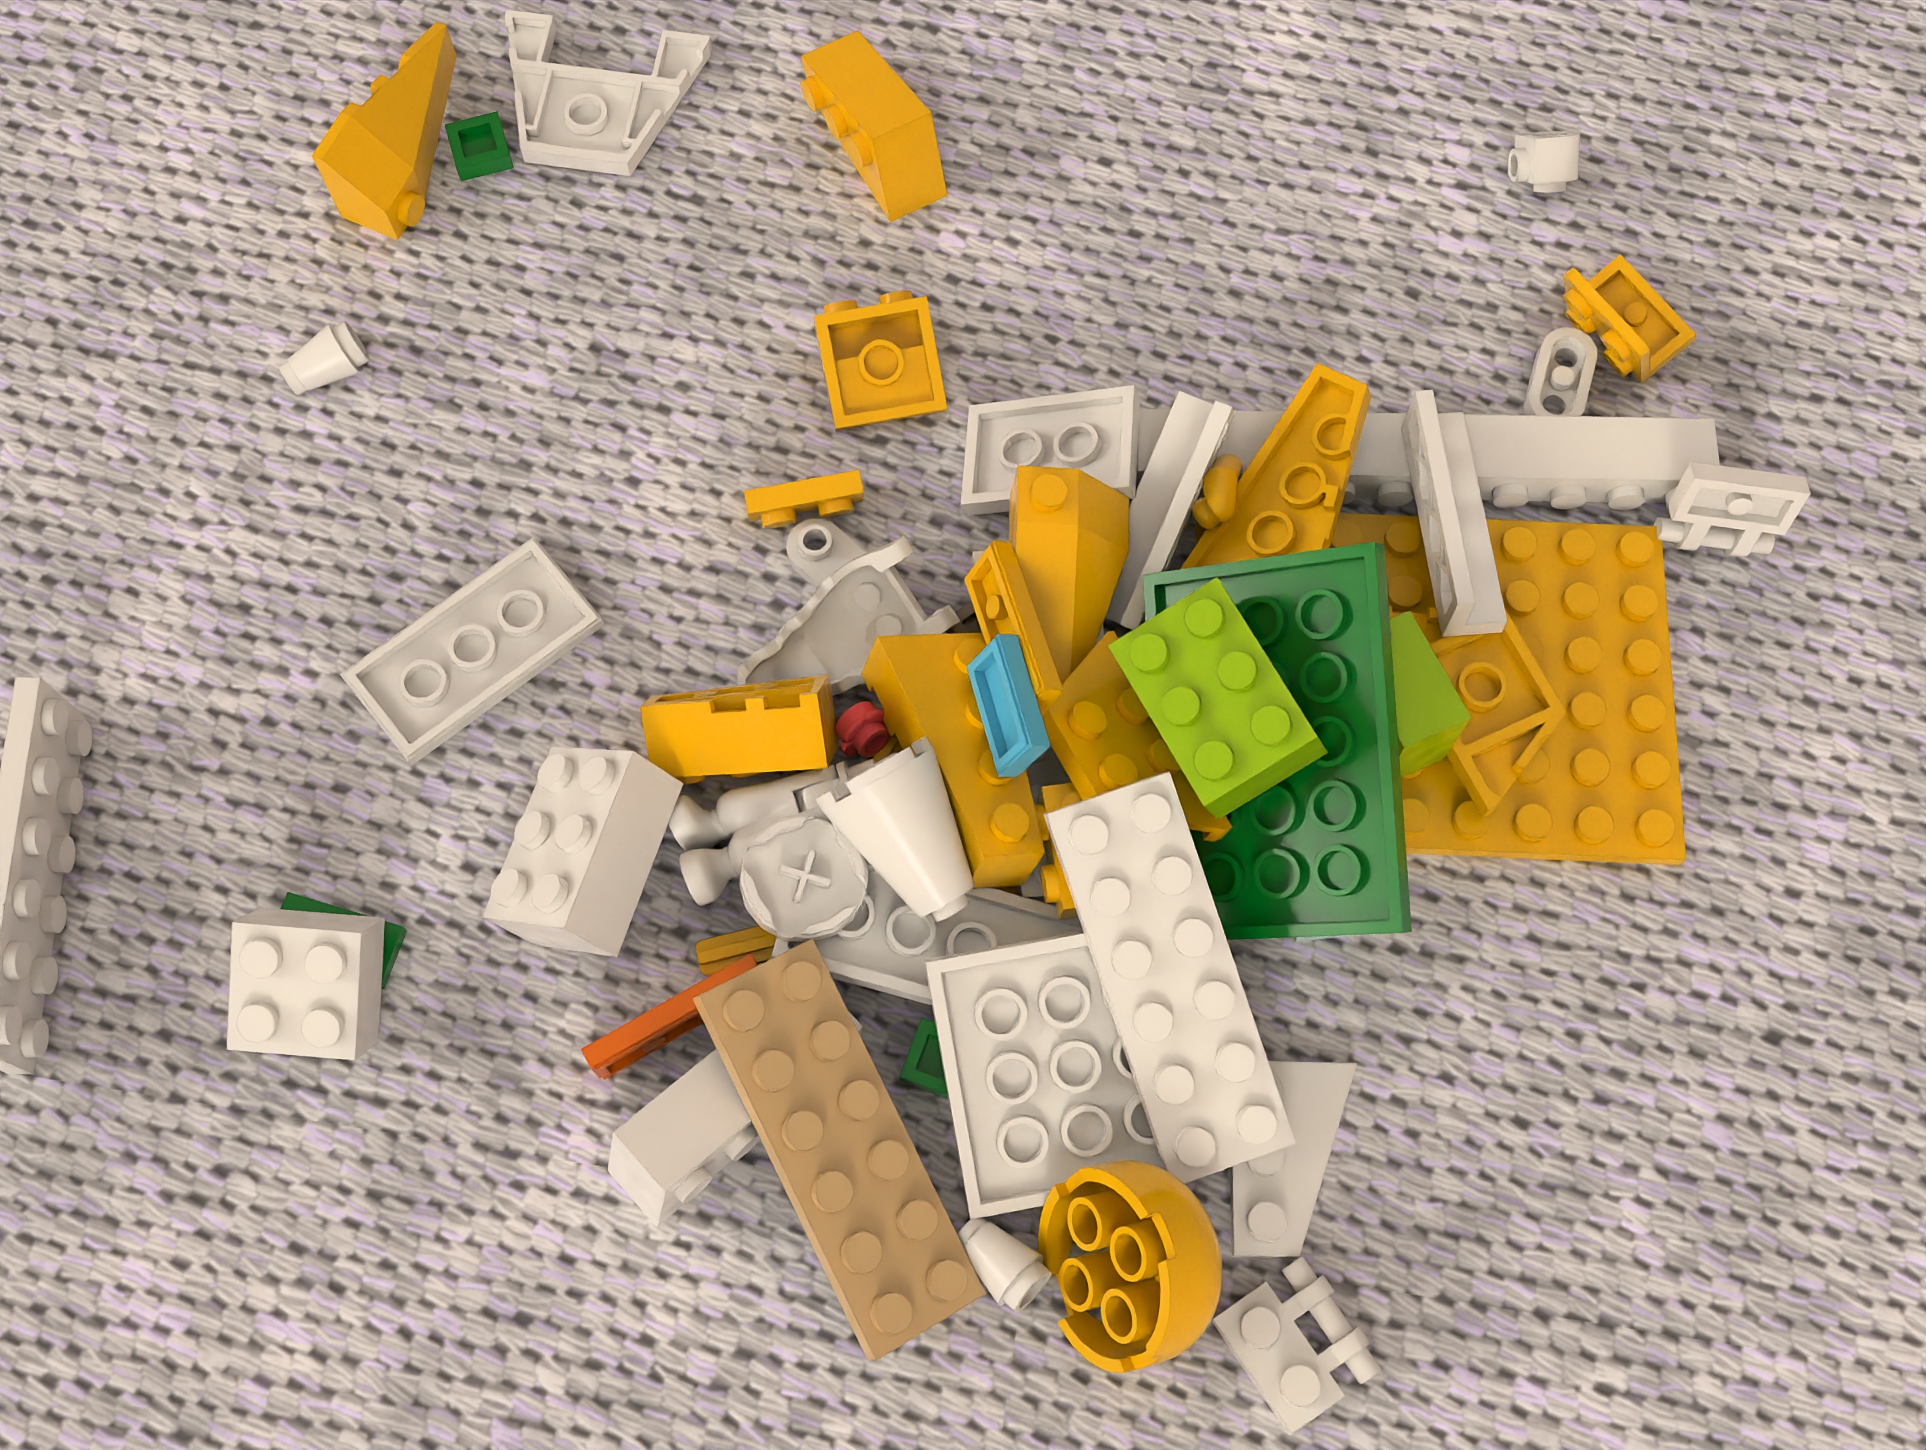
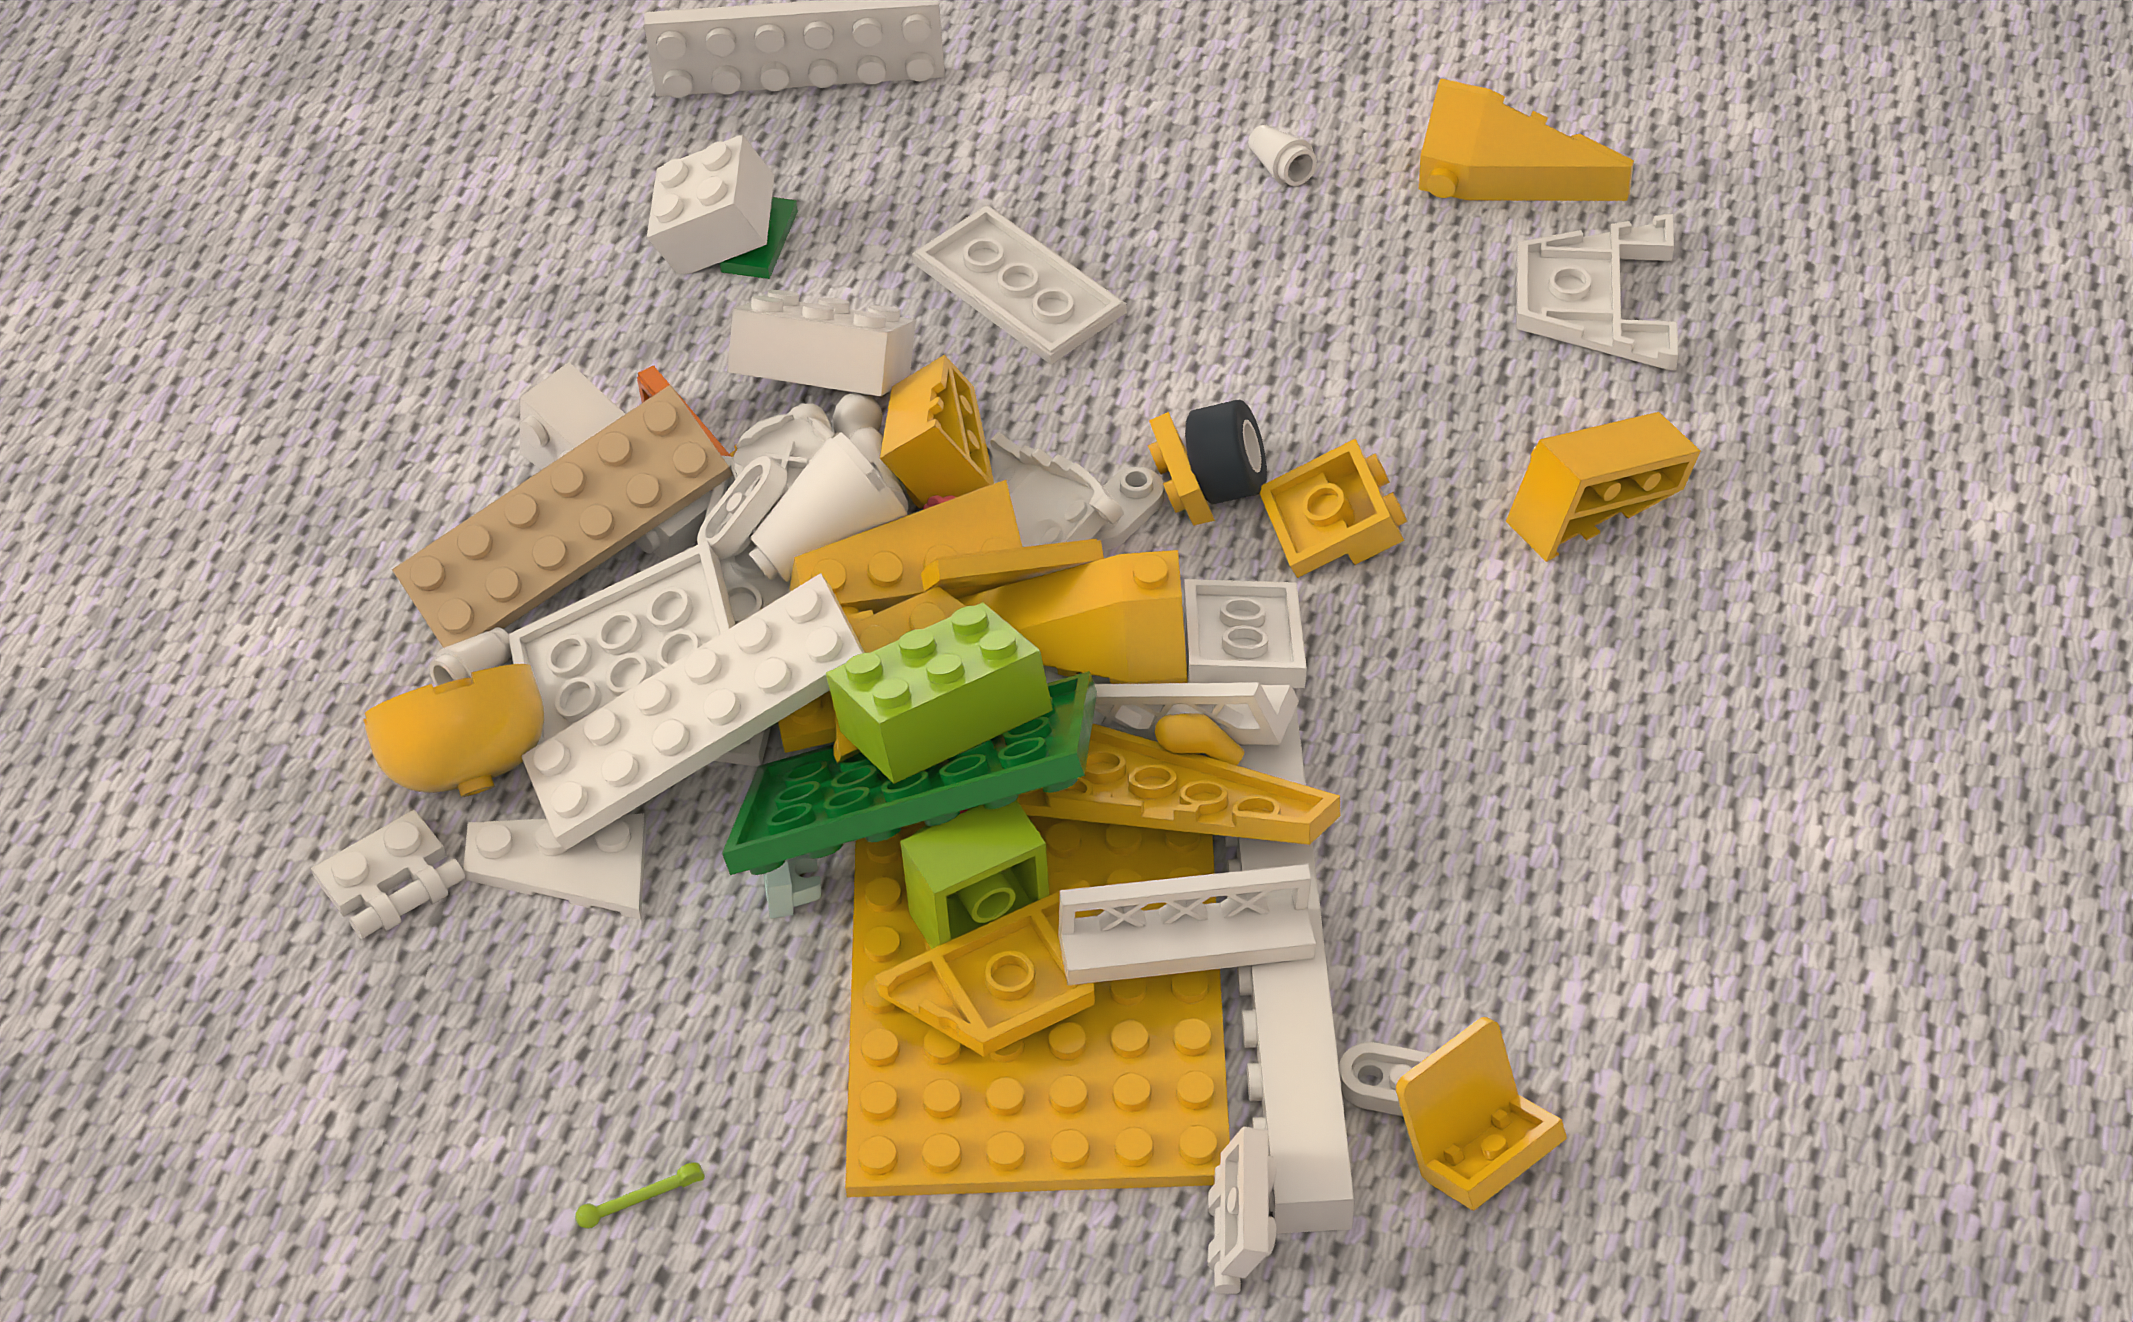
camera: 90 degrees right, 20 degrees down
(479, 146) = (1520, 218): green plate -> none
(797, 443) = (1226, 451): none -> black wheel
(879, 918) = (743, 507): none -> white plate
(1008, 706) = (917, 554): medium azure tile -> none
(1545, 160) = (1686, 1060): white plate -> none
(1711, 1108) = (589, 1215): none -> lime hinge

